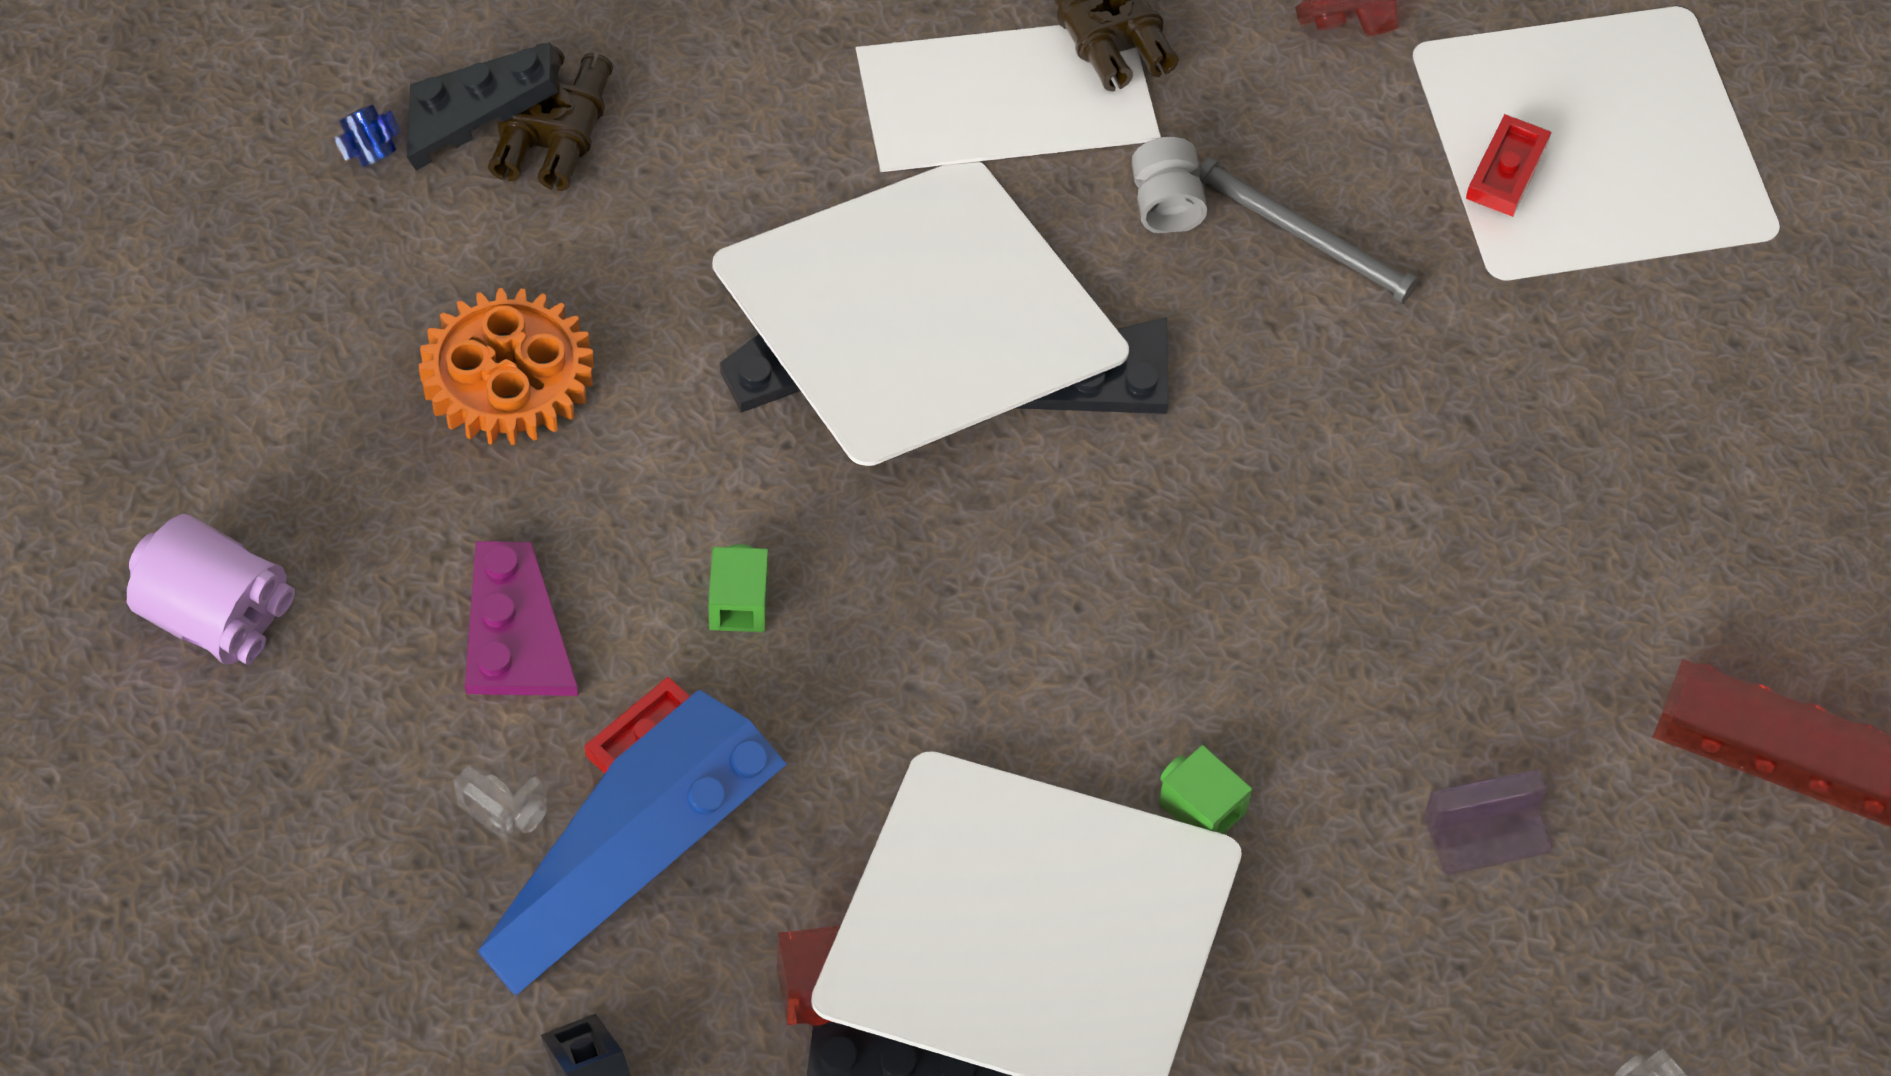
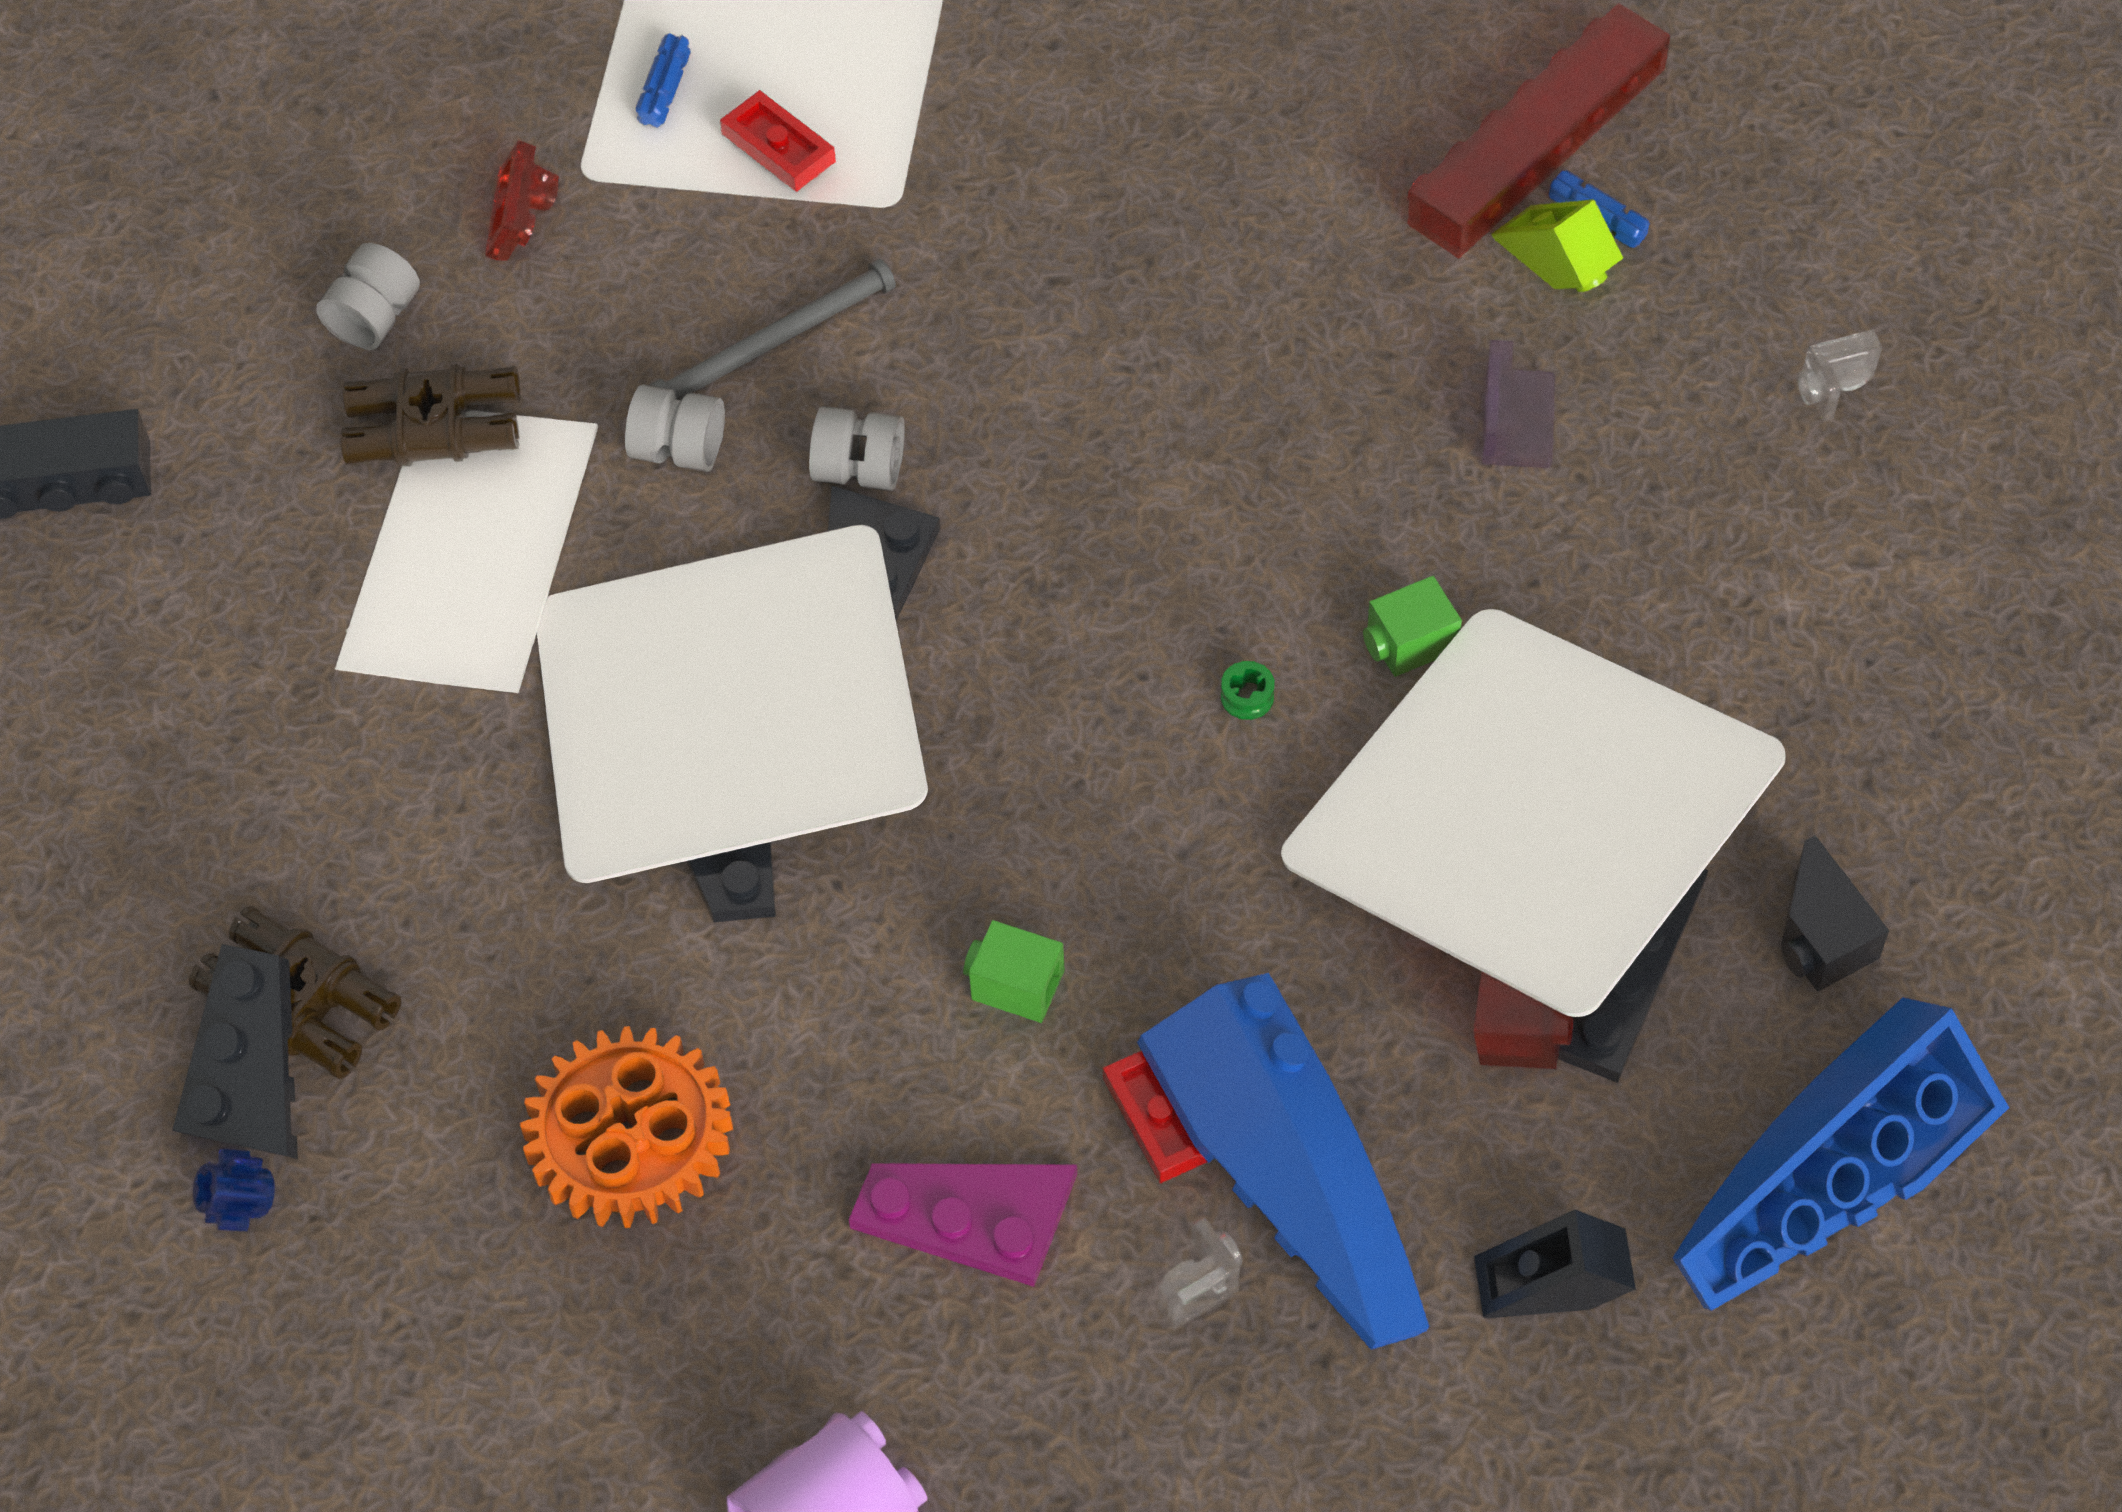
camera: 65 degrees left, 0 degrees up
(1102, 677) = (1235, 679): none -> green bush
(1206, 319) = (837, 445): none -> light grey wheel
(1536, 65) = (663, 80): none -> blue axle
(1695, 812) = (1562, 243): none -> lime slope
(1765, 839) = (1629, 227): none -> blue axle

